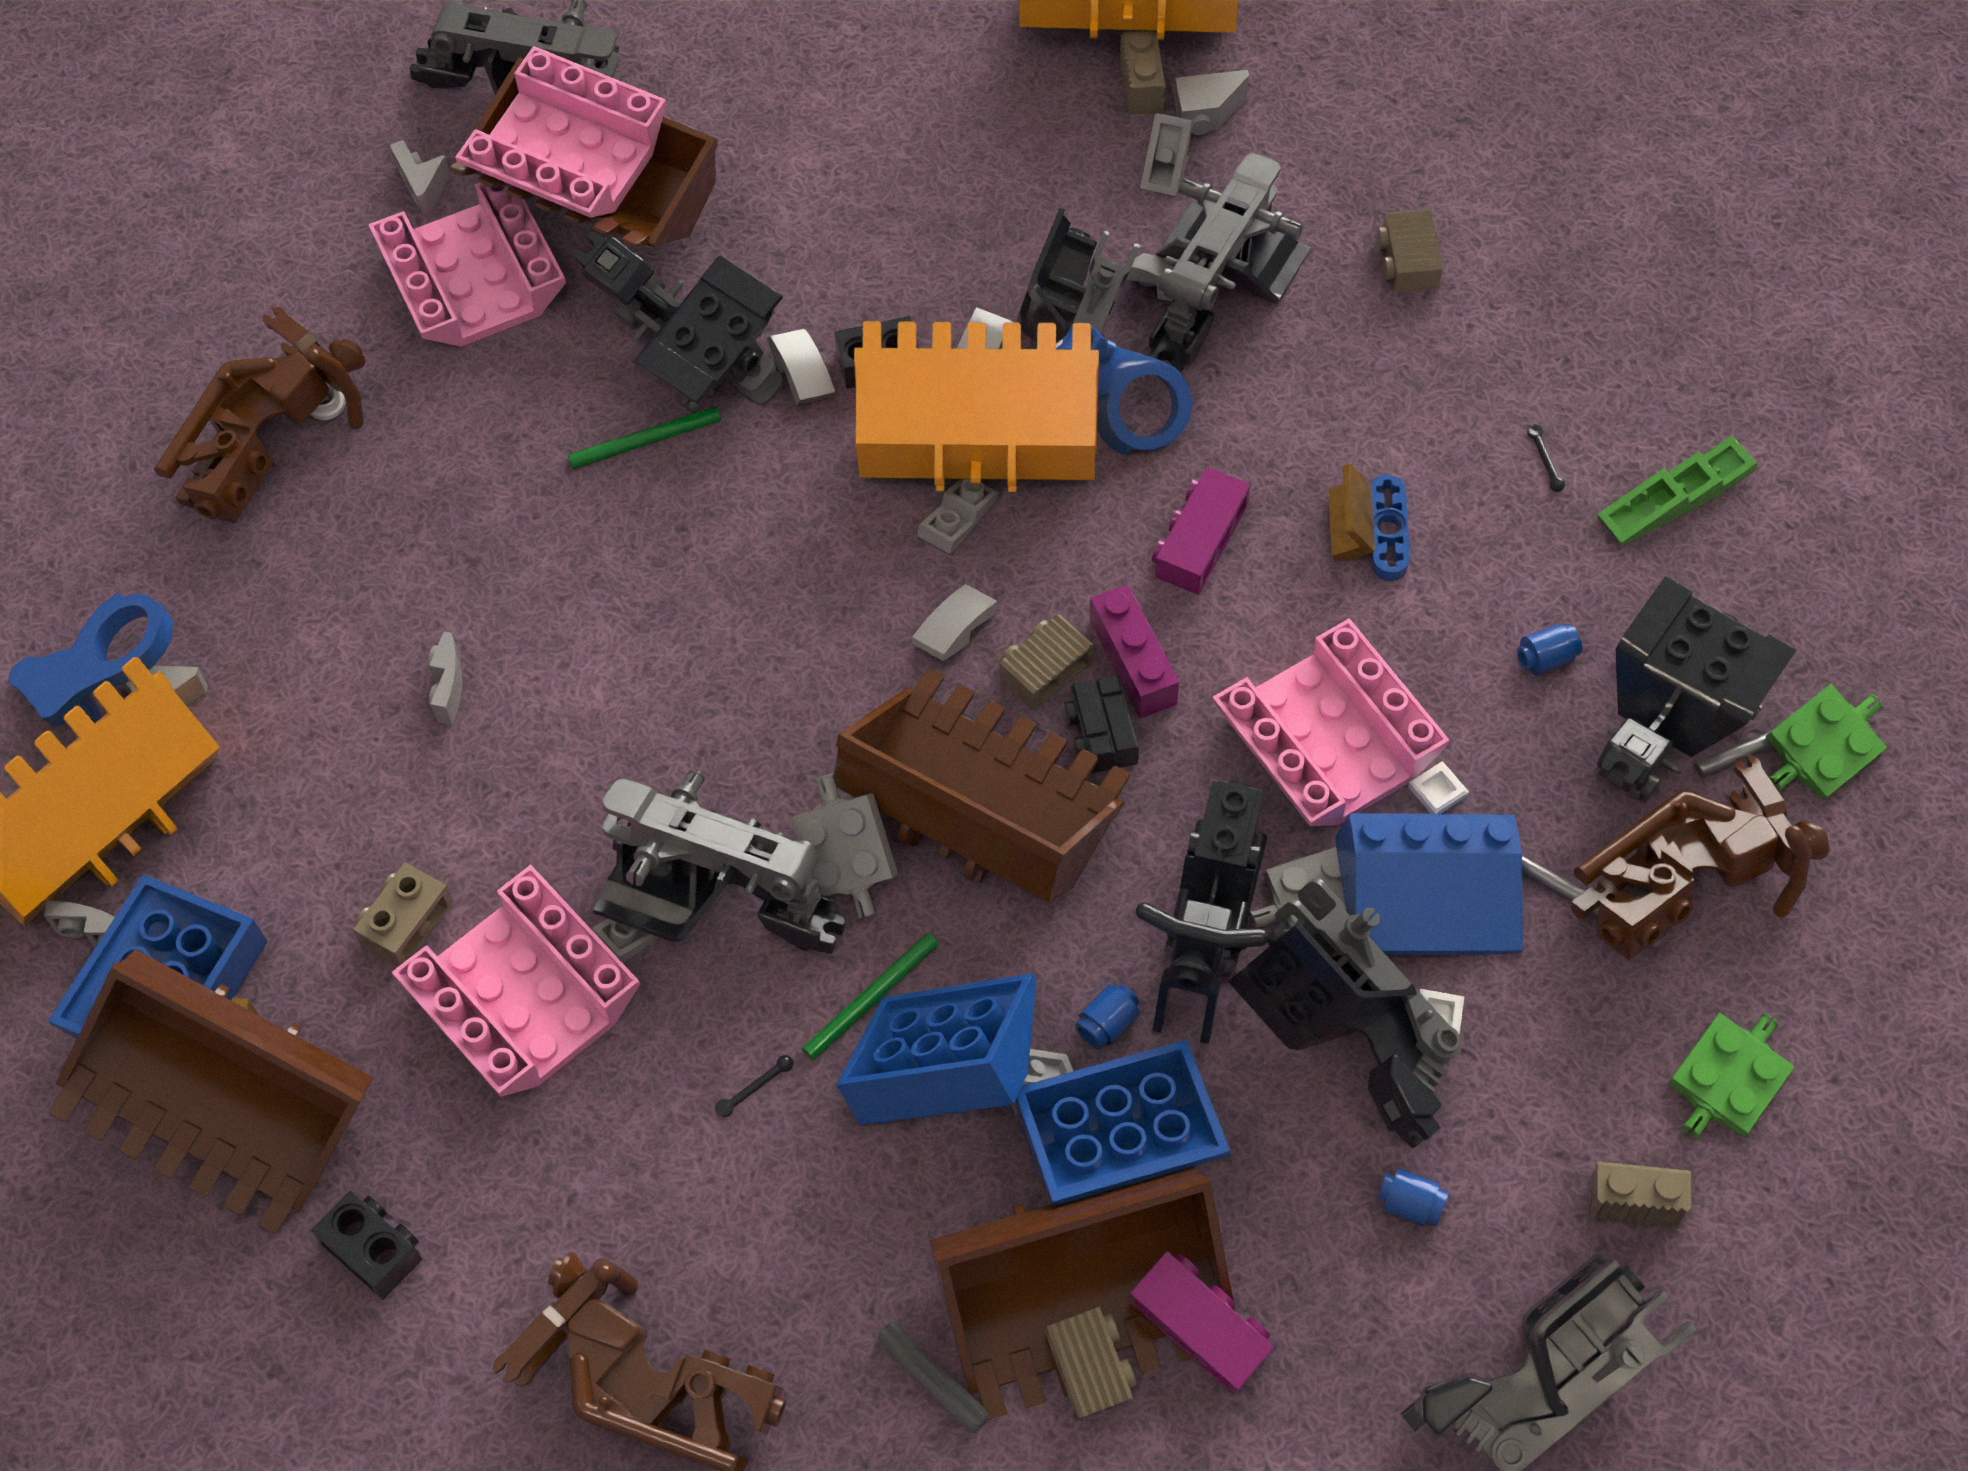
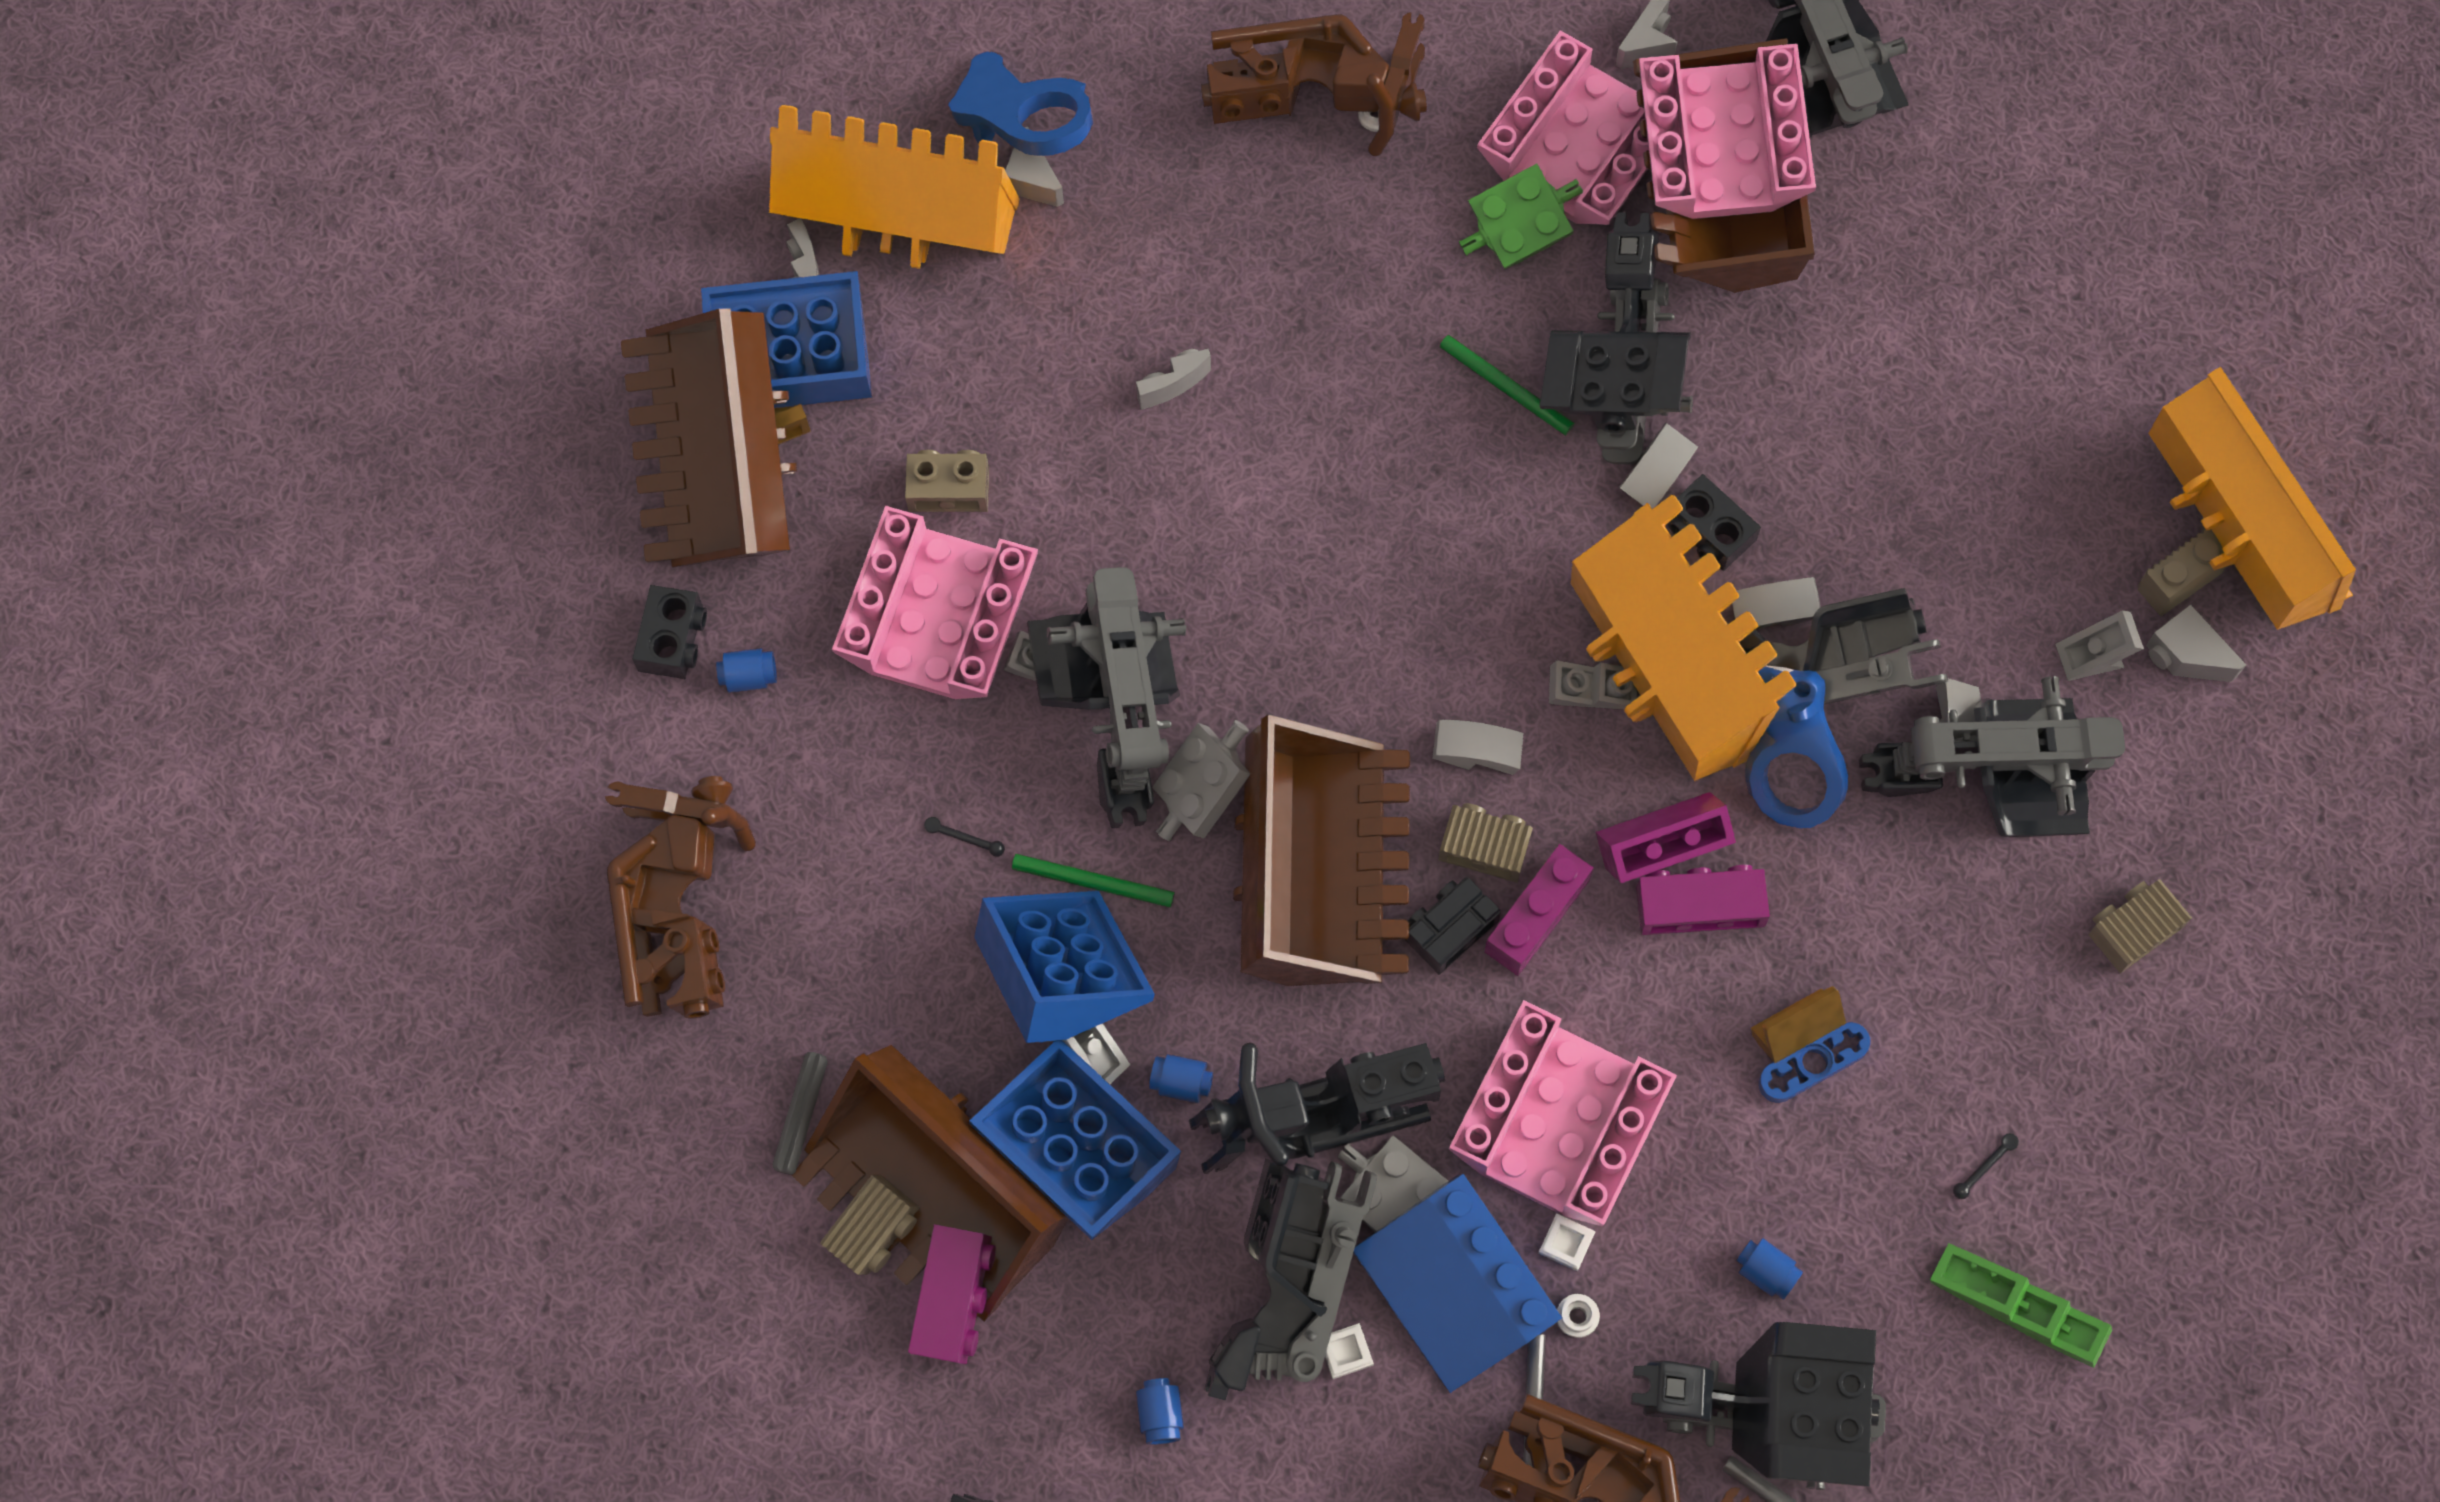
camera: 60 degrees right, 10 degrees up
(457, 1191) = (746, 670): none -> blue brick
(506, 345) = (1521, 216): none -> bright green plate
(1131, 523) = (1665, 837): none -> magenta brick
(1514, 803) = (1588, 1306): none -> white plate

